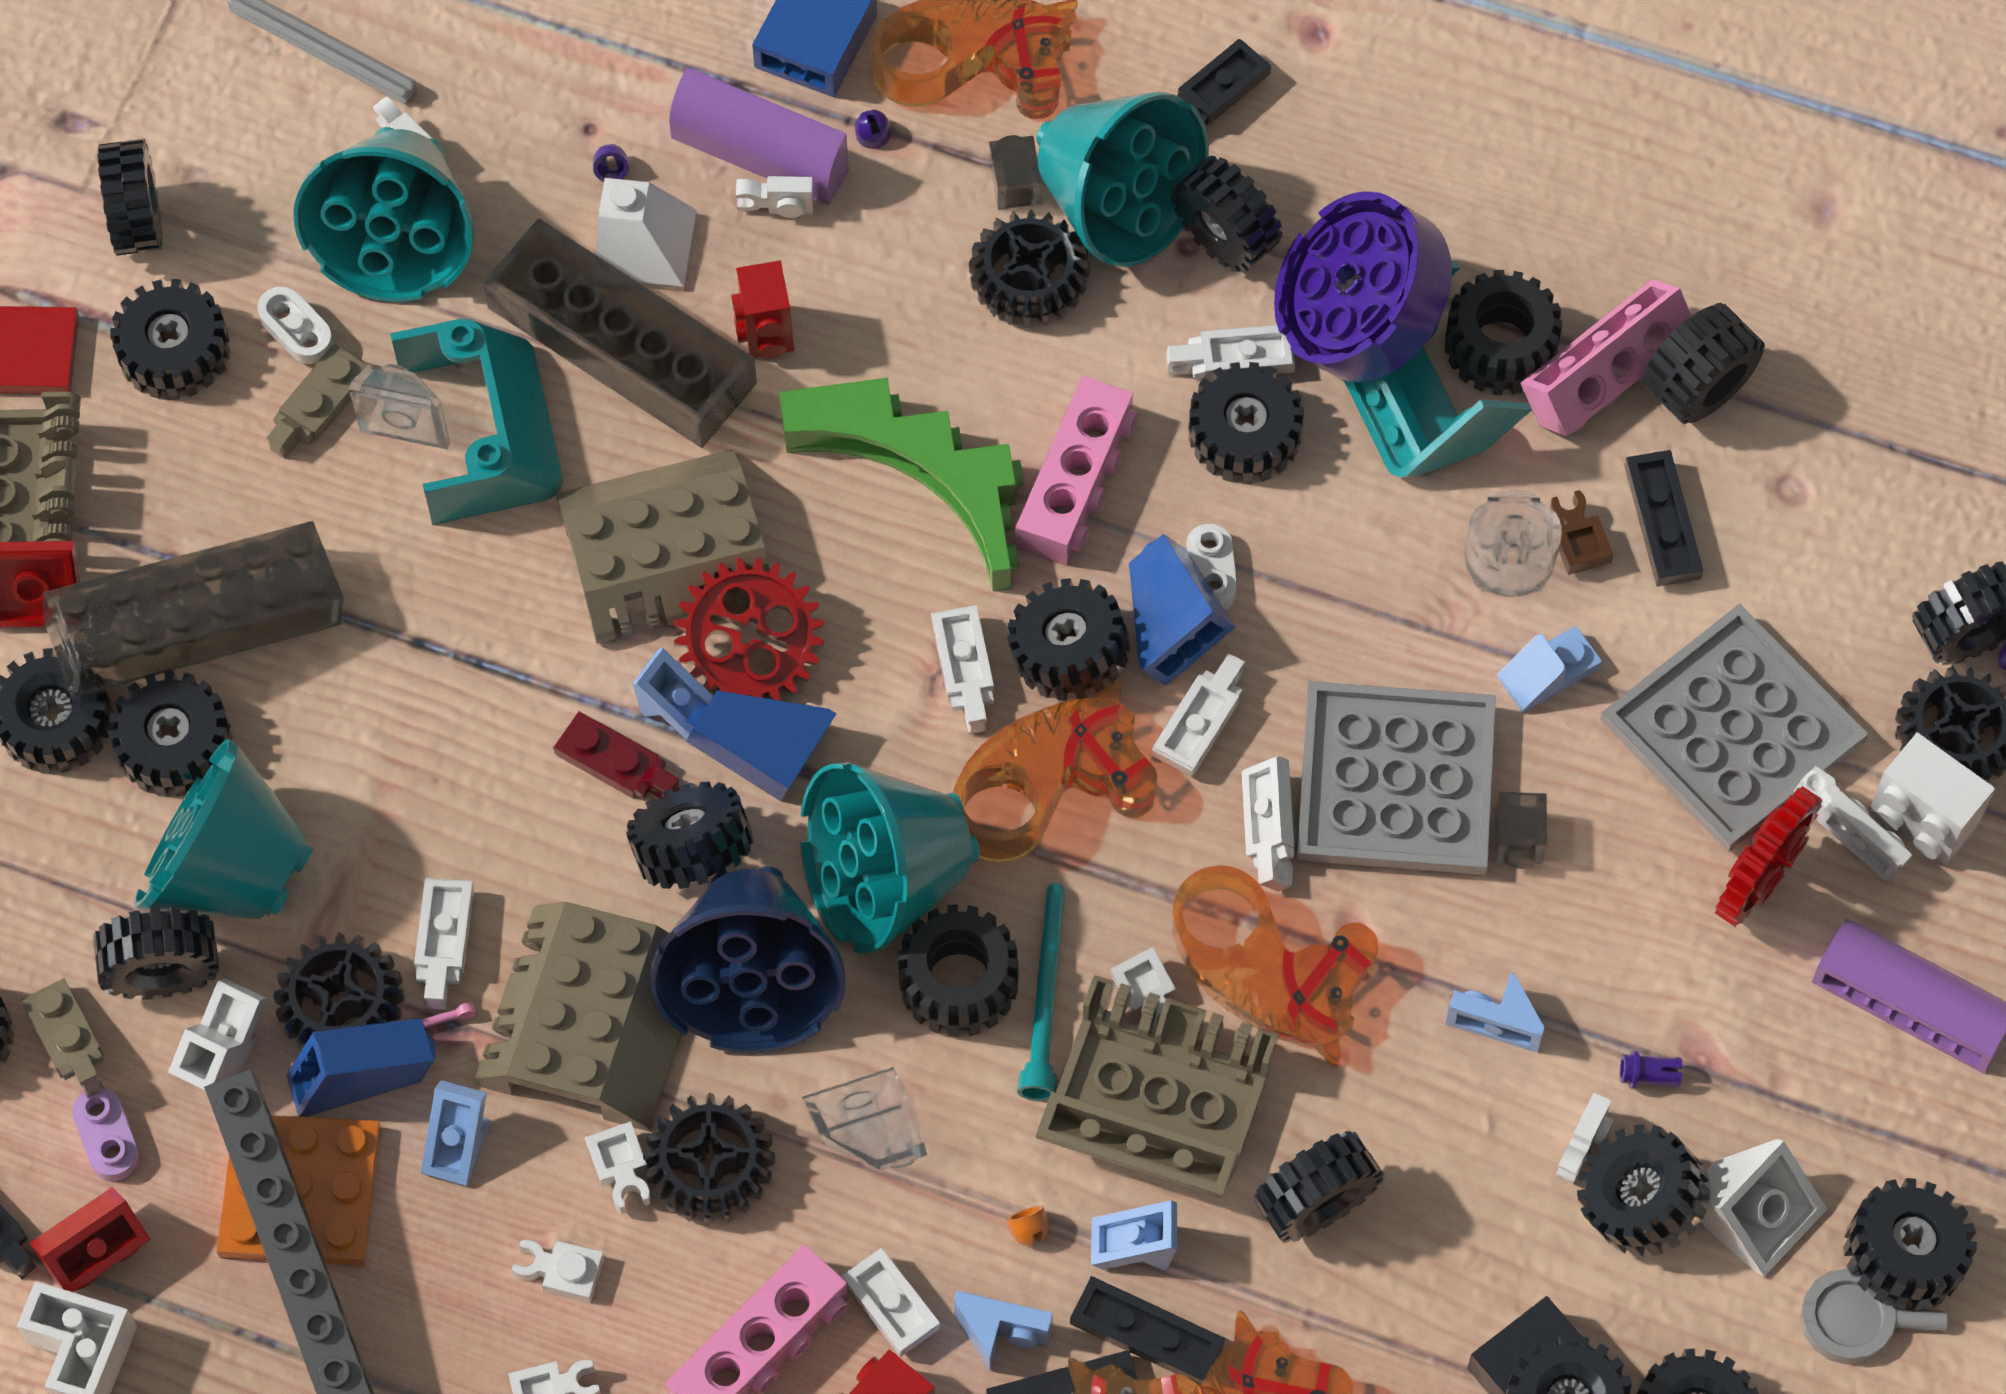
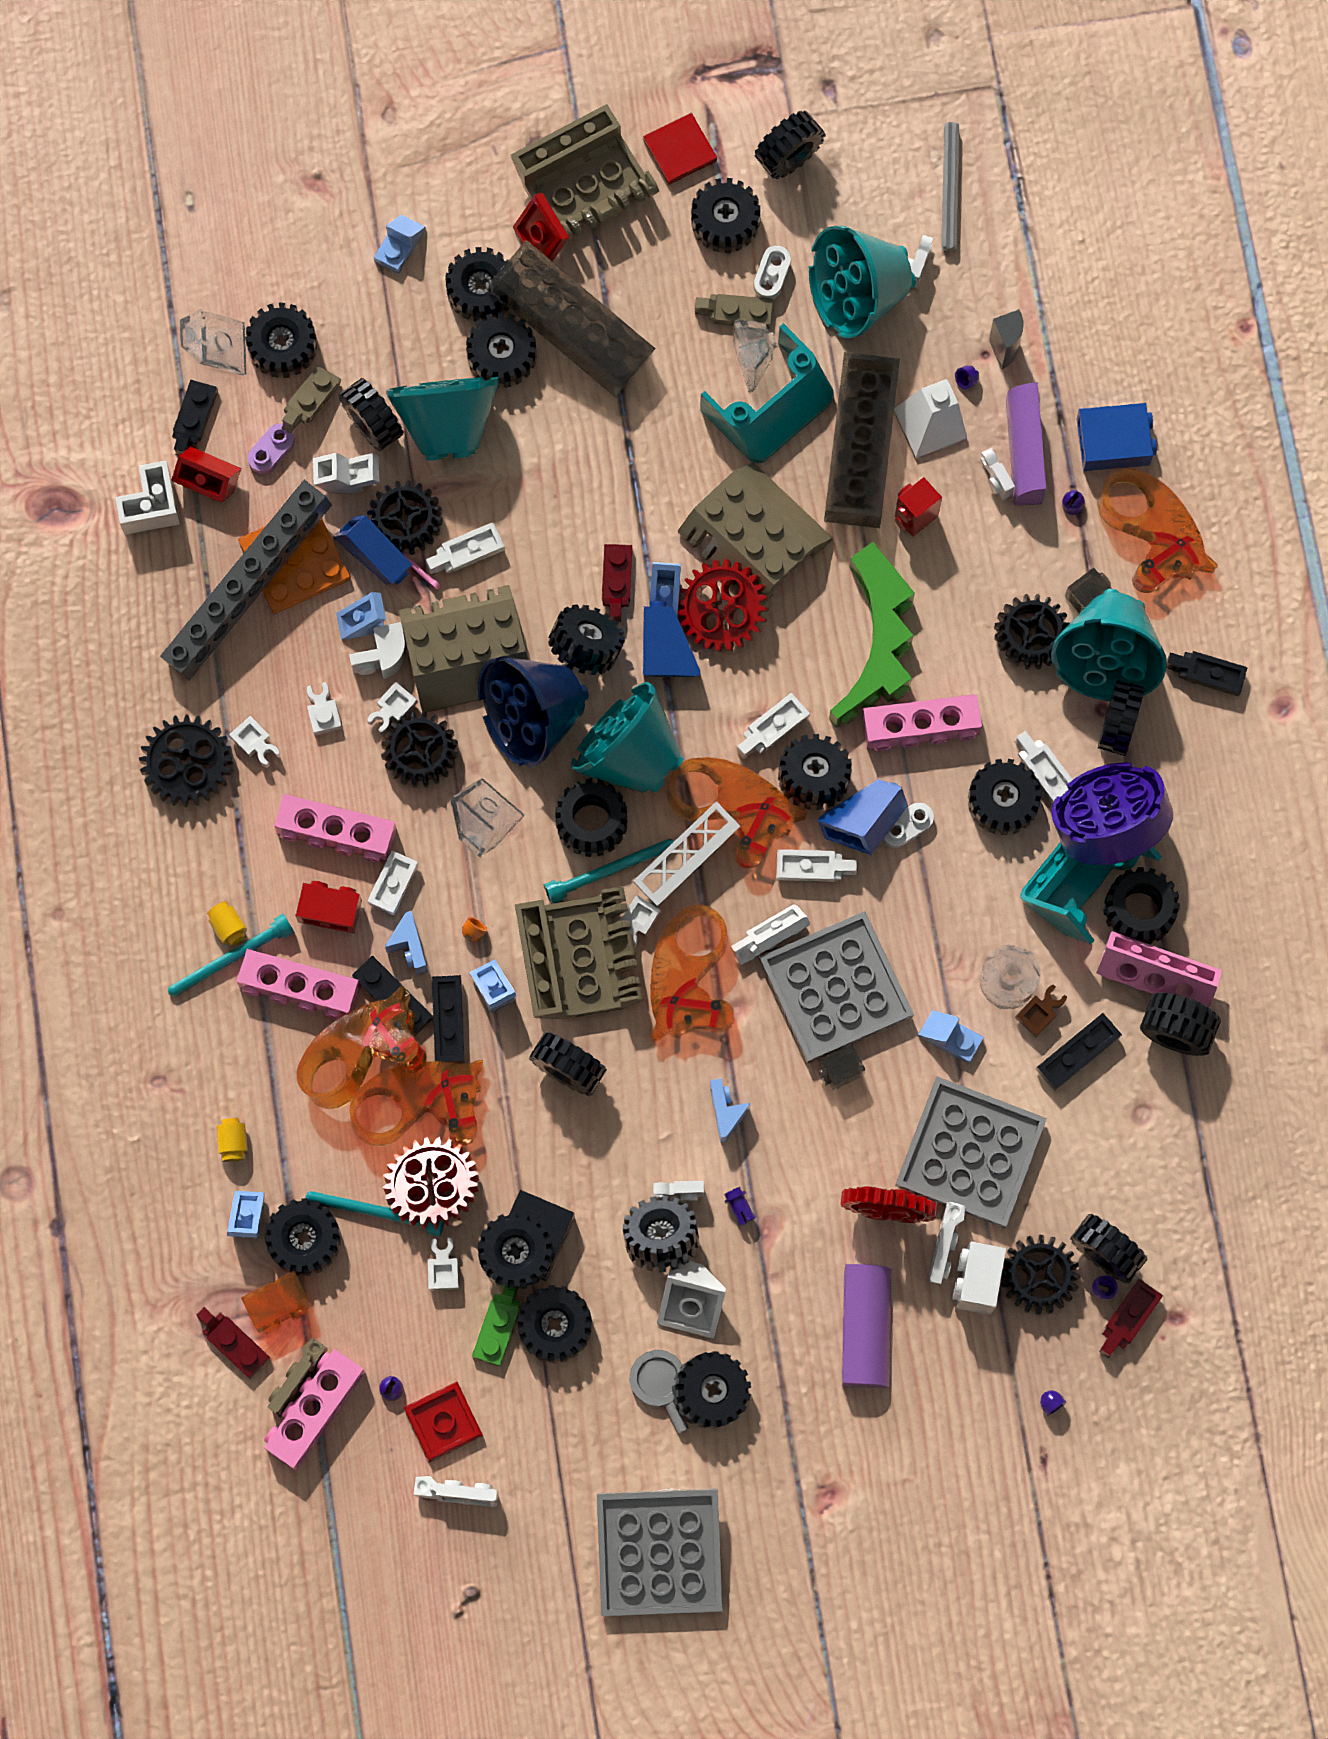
camera: 60 degrees right, 10 degrees up
(533, 1124) = (389, 653): none -> white brick
(592, 77) = (1006, 337): none -> dark grey brick
(1102, 863) = (692, 863): none -> white fence

